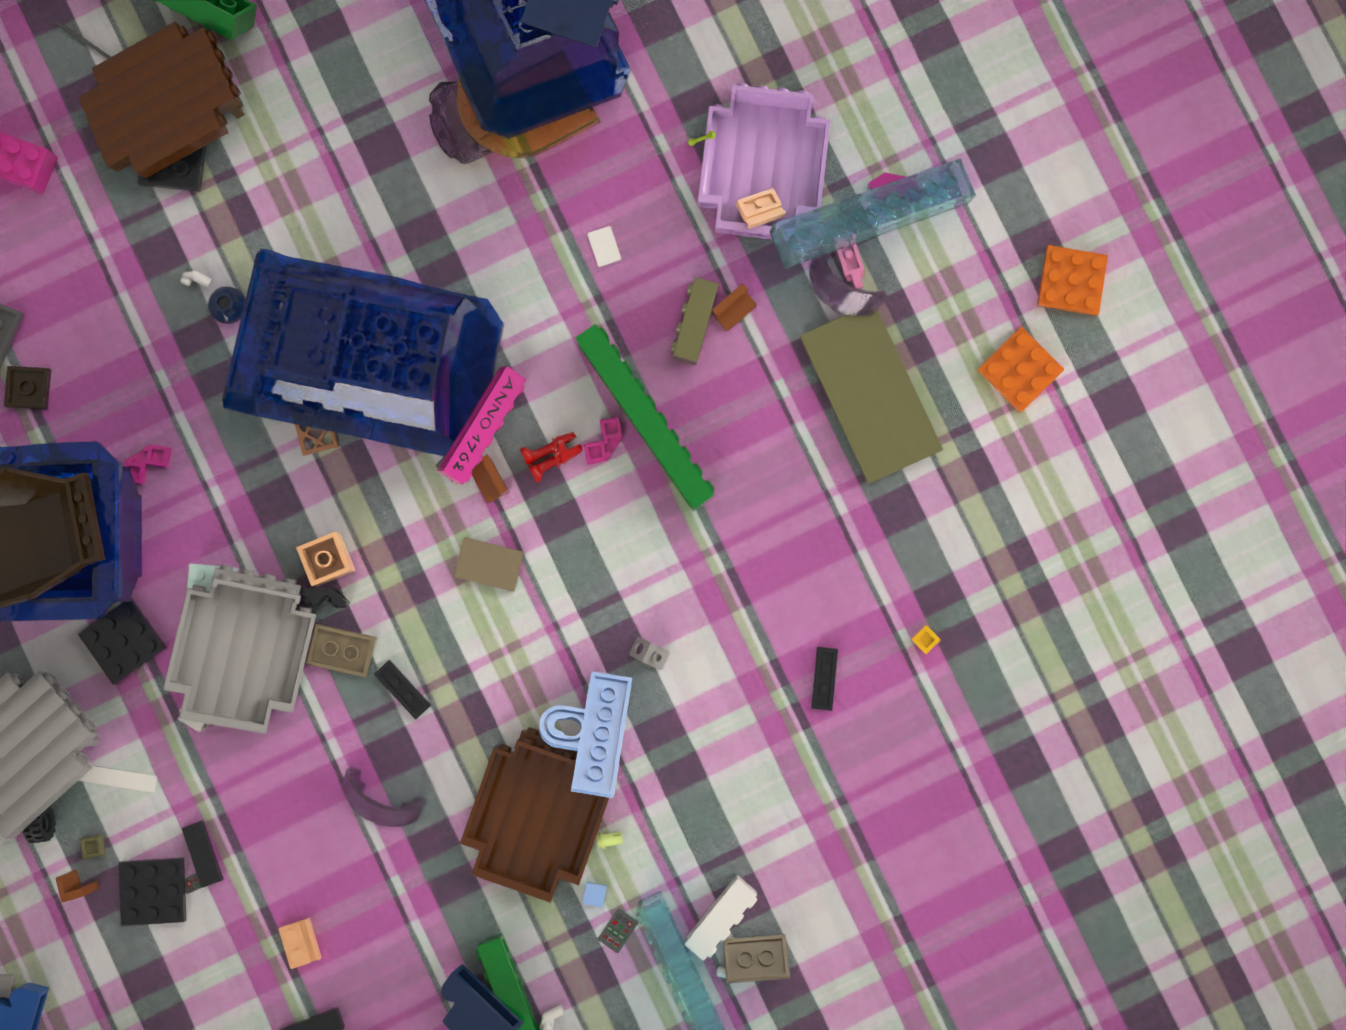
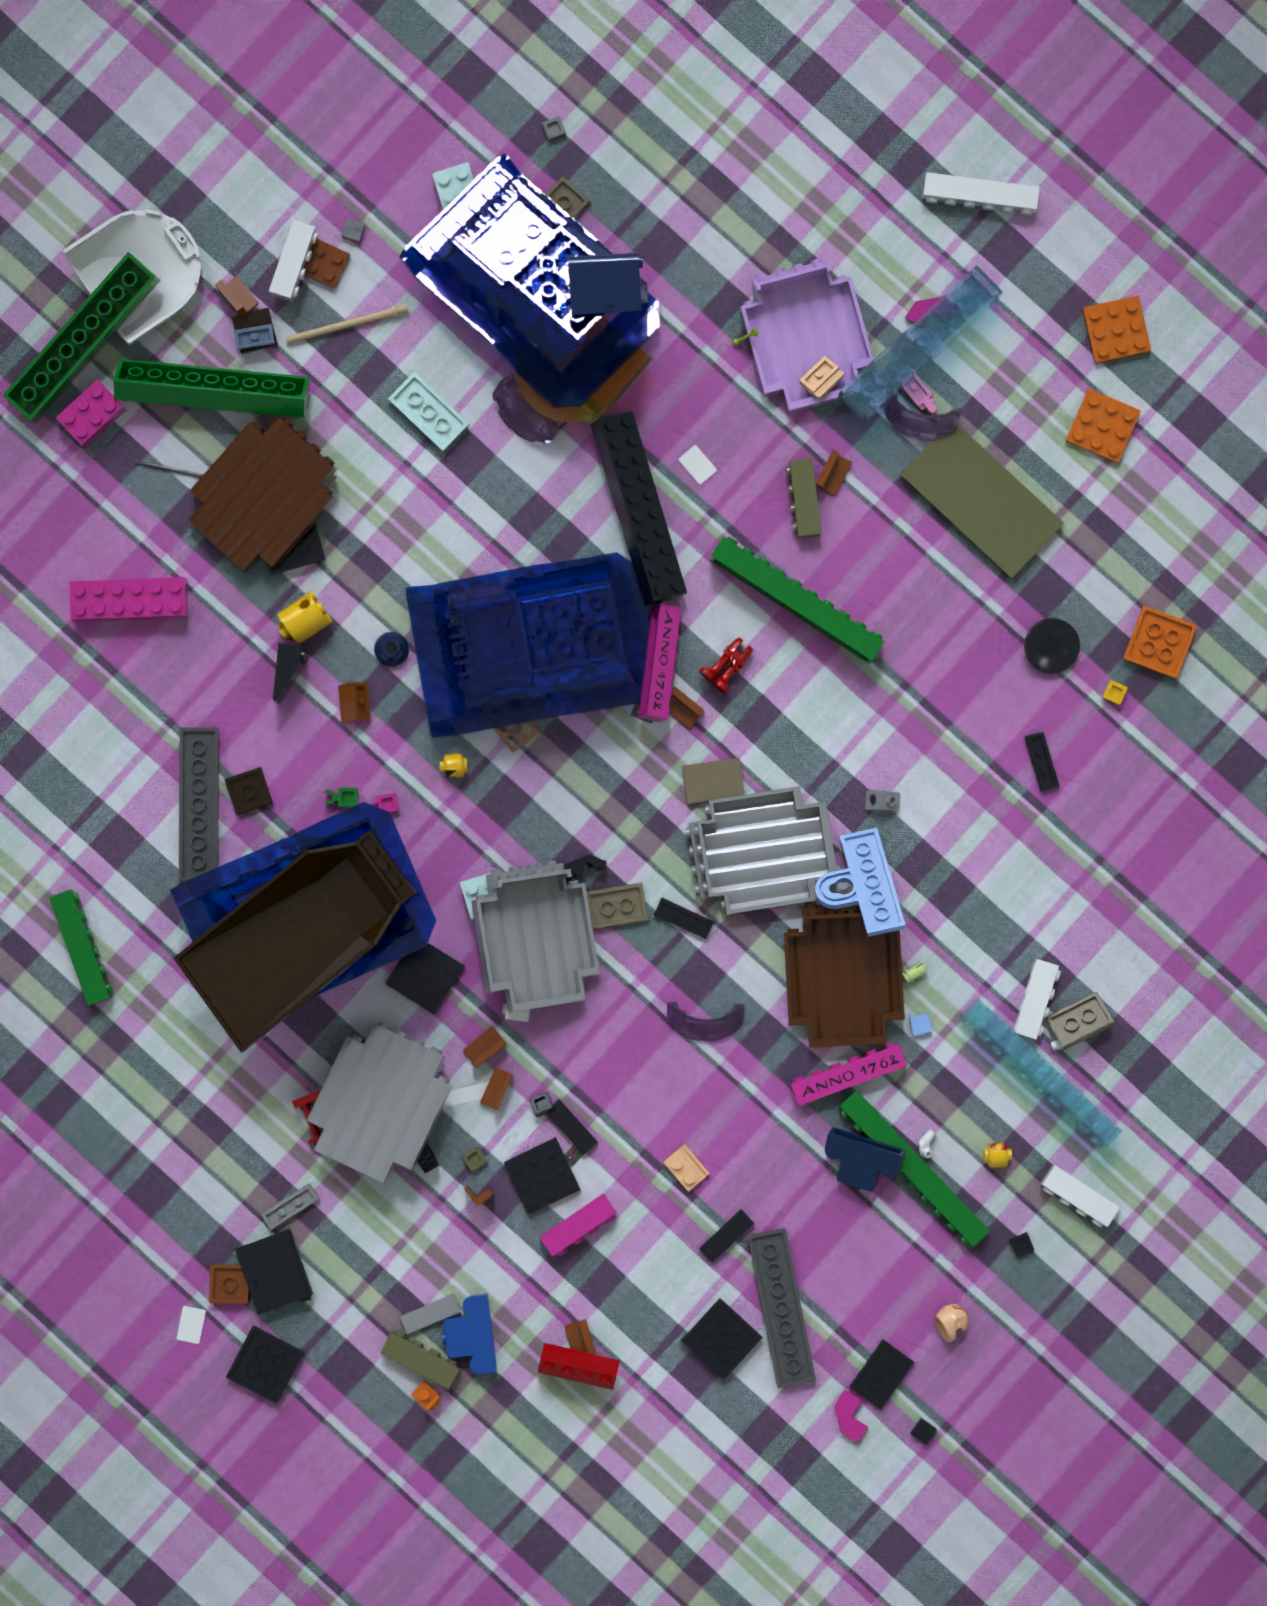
camera: 15 degrees left, 0 degrees up
(109, 283) = (288, 667): none -> black slope
(117, 432) = (345, 797): none -> green plate
(144, 784) = (496, 1088): none -> dark orange panel
(148, 238) = (303, 619): none -> yellow cylinder
(150, 738) = (484, 1047): none -> dark orange panel
(165, 957) = (578, 1224): none -> dark pink brick
(168, 342) = (354, 702): none -> dark orange panel
(181, 819) = (542, 1104): none -> black tile
(195, 276) = (354, 635): white arm -> none
(237, 444) = (453, 765): none -> yellow head
(325, 559) = (573, 832): light nougat brick -> none
(361, 87) = (428, 411): none -> light aqua plate
(500, 916) = (849, 1074): none -> dark pink brick
(506, 654) = (761, 850): none -> light grey panel
(525, 263) = (638, 508): none -> black brick
(602, 450) = (770, 642): dark pink tile -> none
(618, 930) = (953, 1047): dark grey sticker -> none
(881, 567) = (1052, 645): none -> black piece
(991, 607) = (1159, 642): none -> orange plate
(992, 92) = (981, 193): none -> white brick

